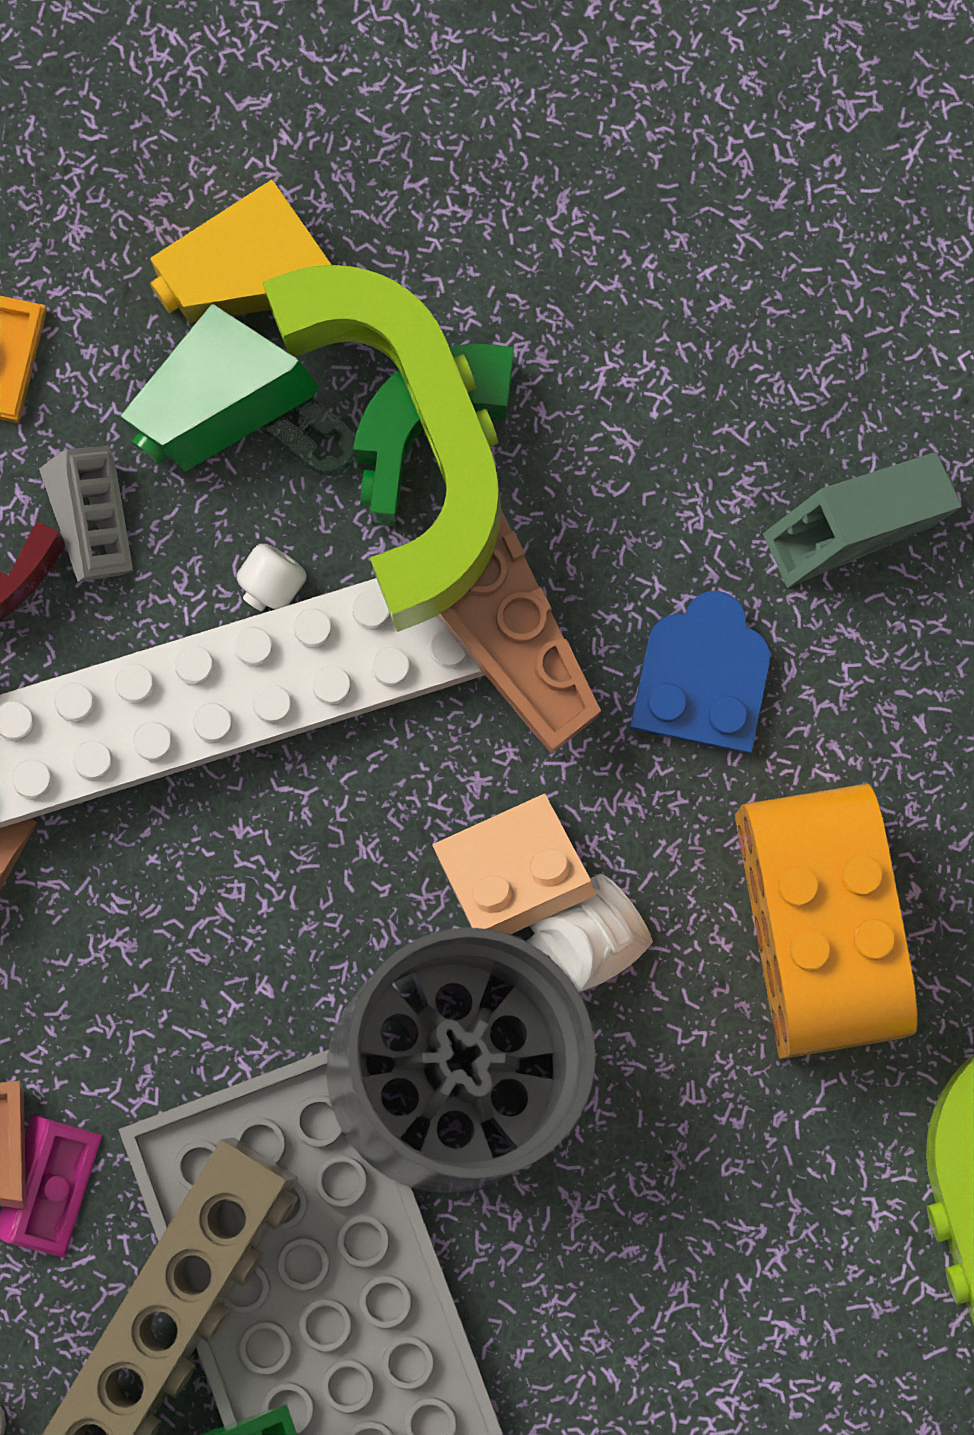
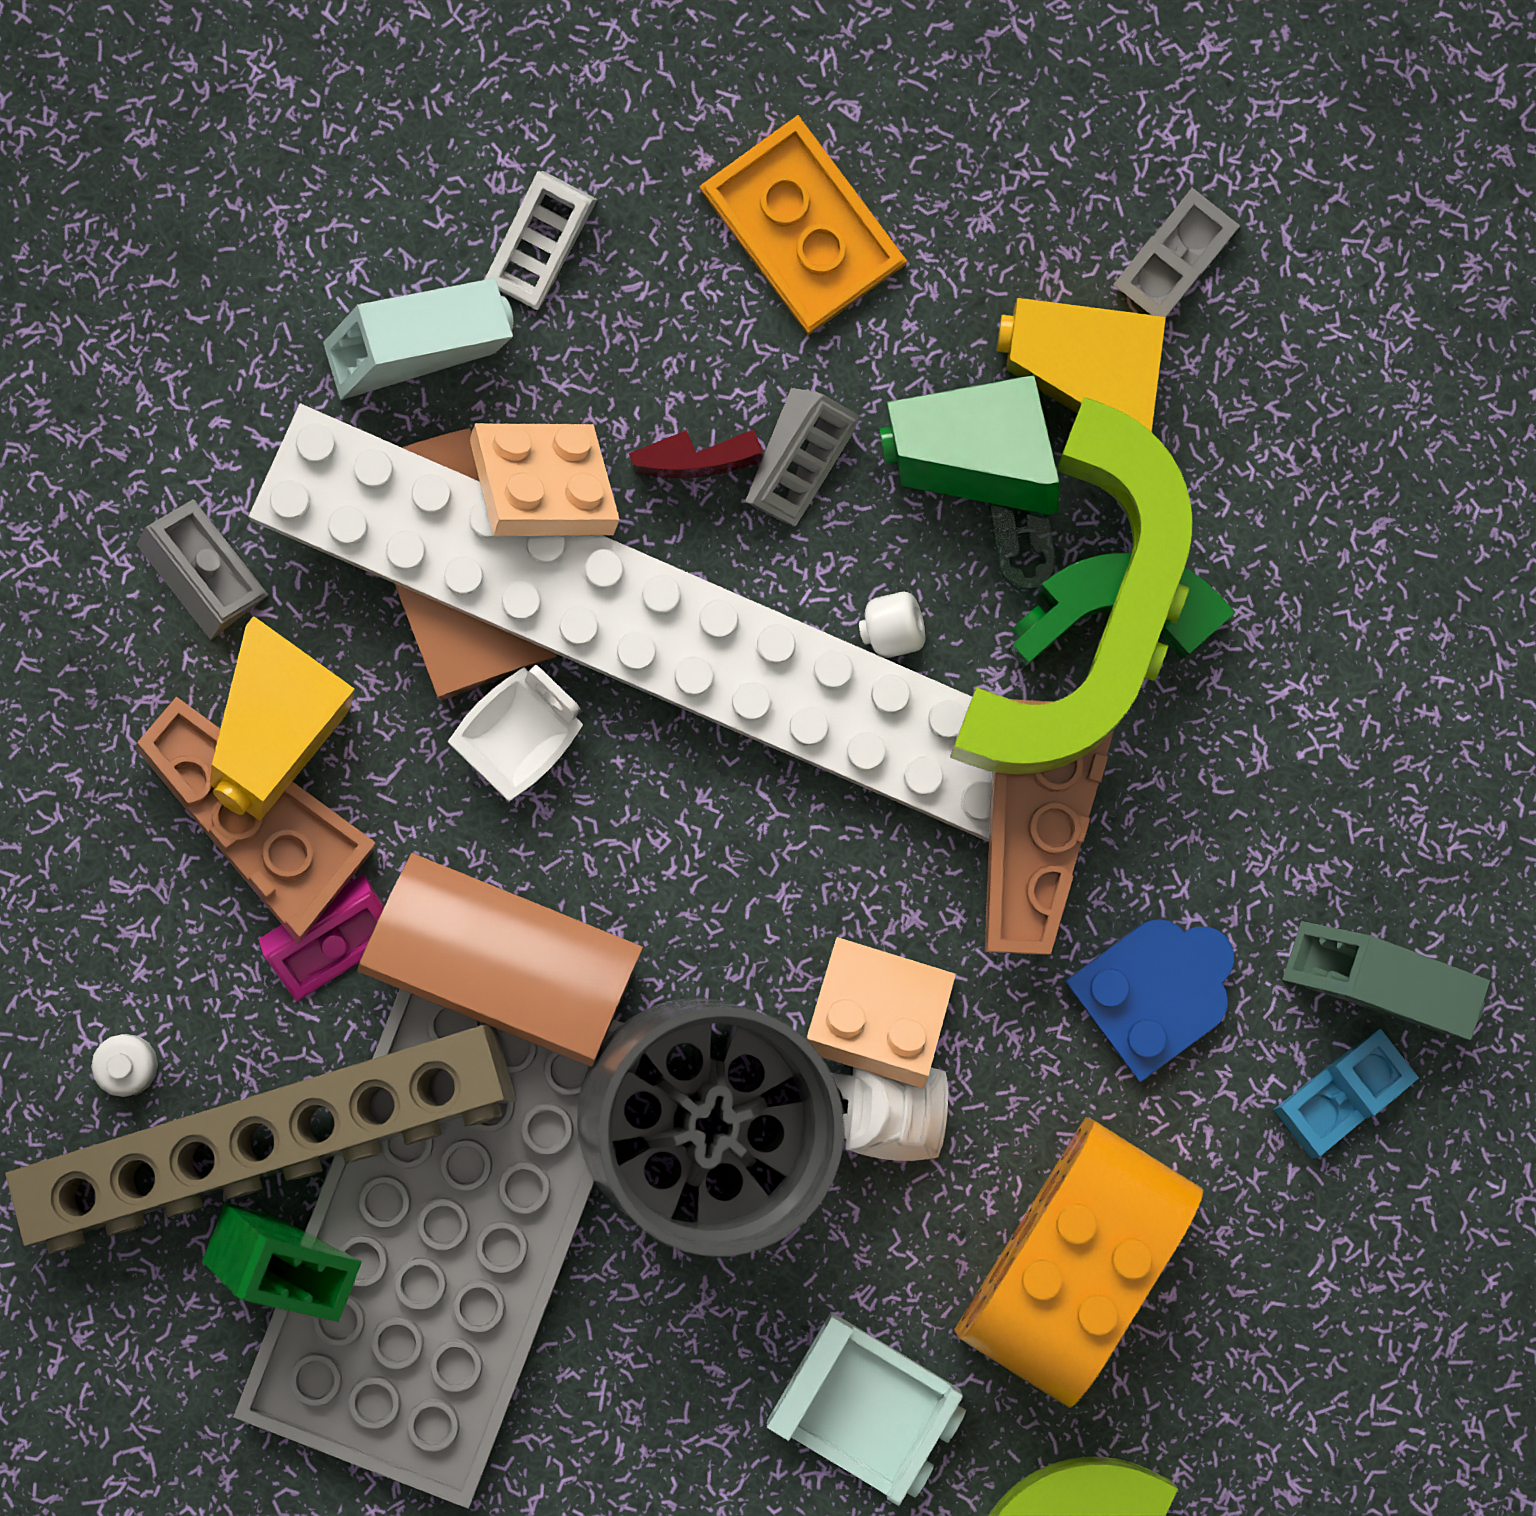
camera: 45 degrees right, 5 degrees up
(55, 899) = (518, 731): none -> white piece
(191, 1082) = (500, 959): none -> nougat slope
(241, 131) = (1177, 254): none -> light grey slope
(769, 1175) = (868, 1409): none -> light aqua panel
(908, 629) = (1346, 1093): none -> dark azure slope

